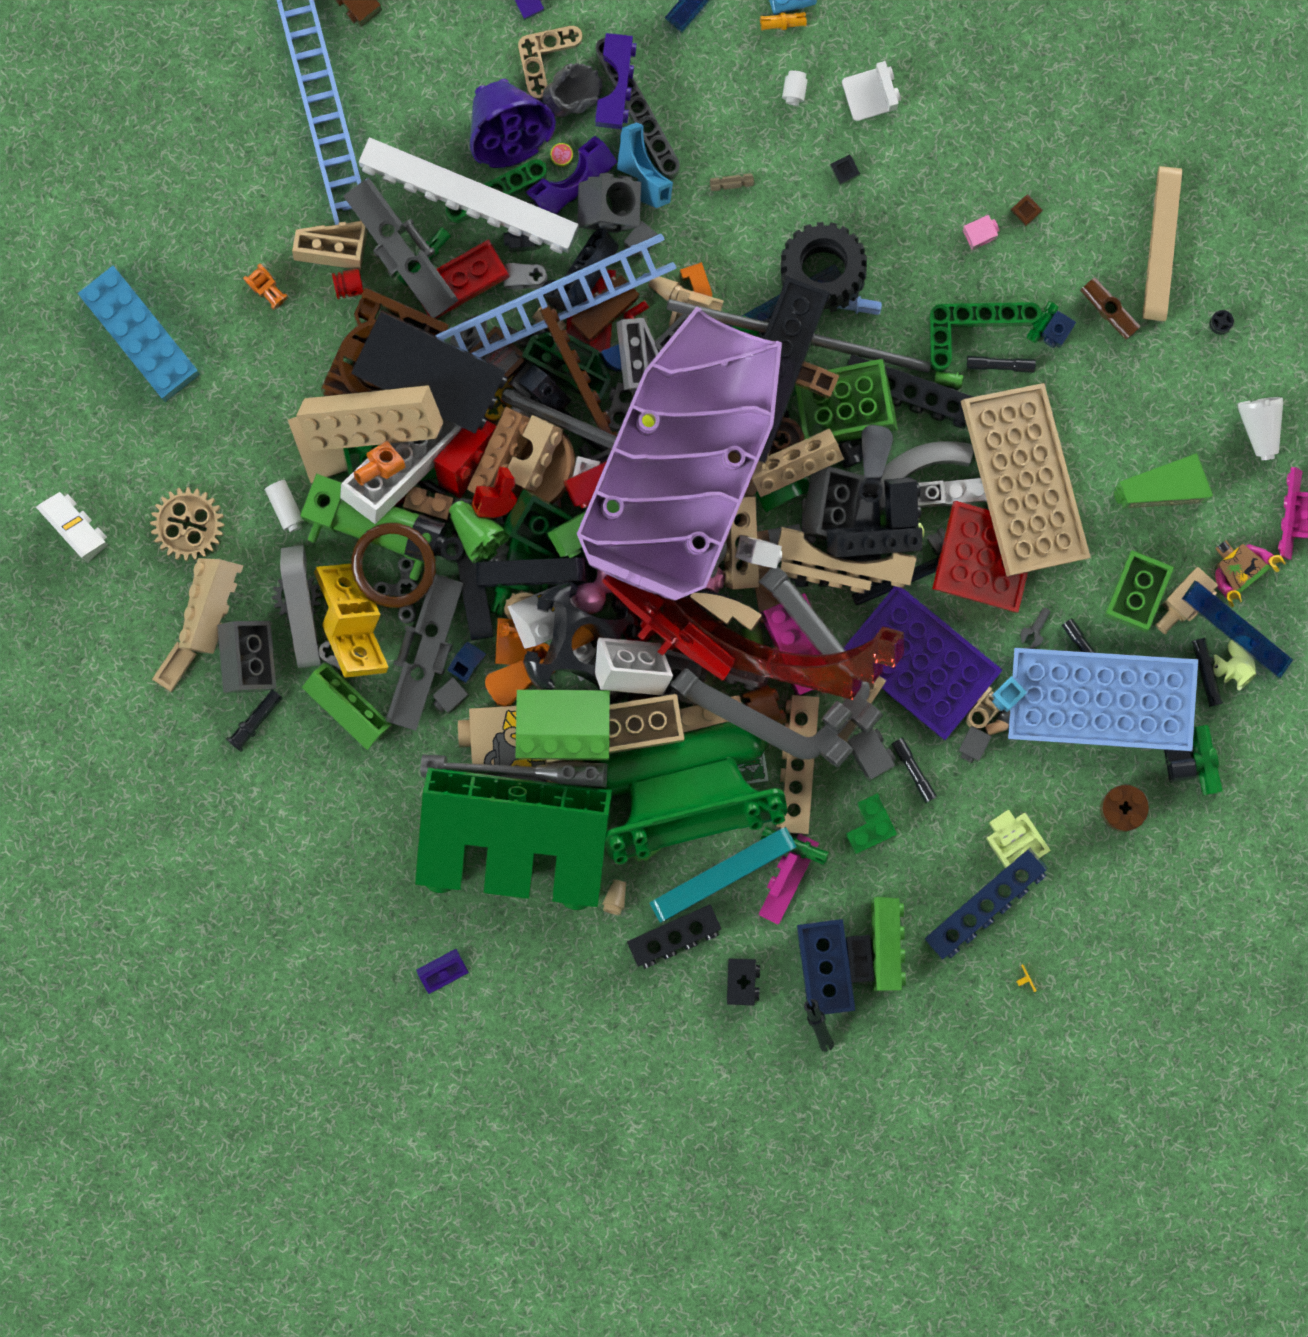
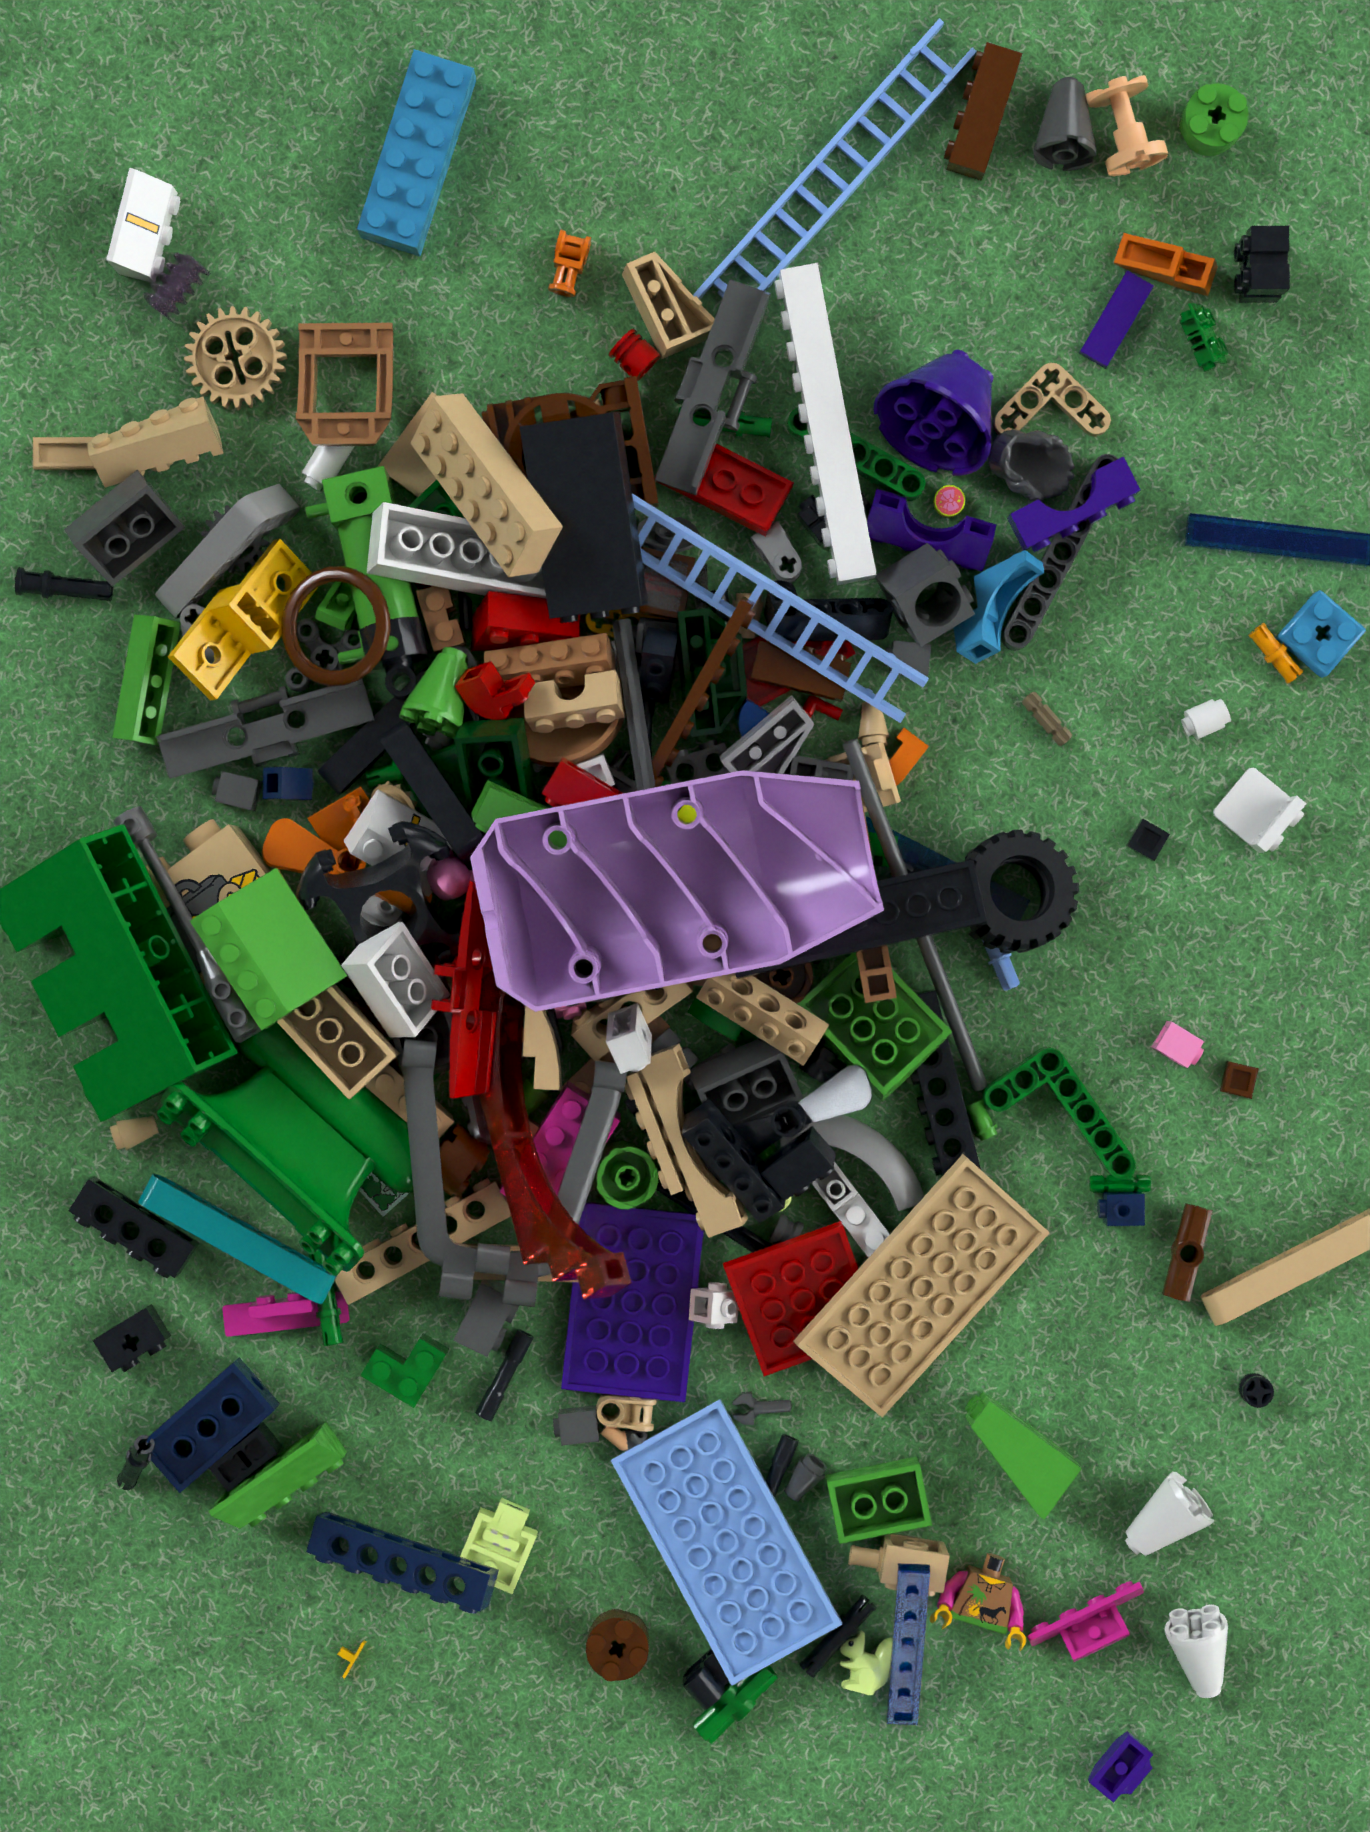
camera: 55 degrees right, 5 degrees up
(119, 531) = (175, 285): none -> clear purple piece
(224, 448) = (344, 341): none -> medium nougat wedge
(377, 466) = (429, 530): orange piece -> none
(379, 559) = (337, 607): none -> bright green slope
(848, 605) = (629, 1190): none -> bright green brick
(955, 613) = (713, 1305): none -> white brick
(1008, 694) = (658, 1430): medium azure bracket -> none
(1015, 365) = (1049, 1185): black piece -> none
(1096, 627) = (806, 1475): none -> dark grey cone

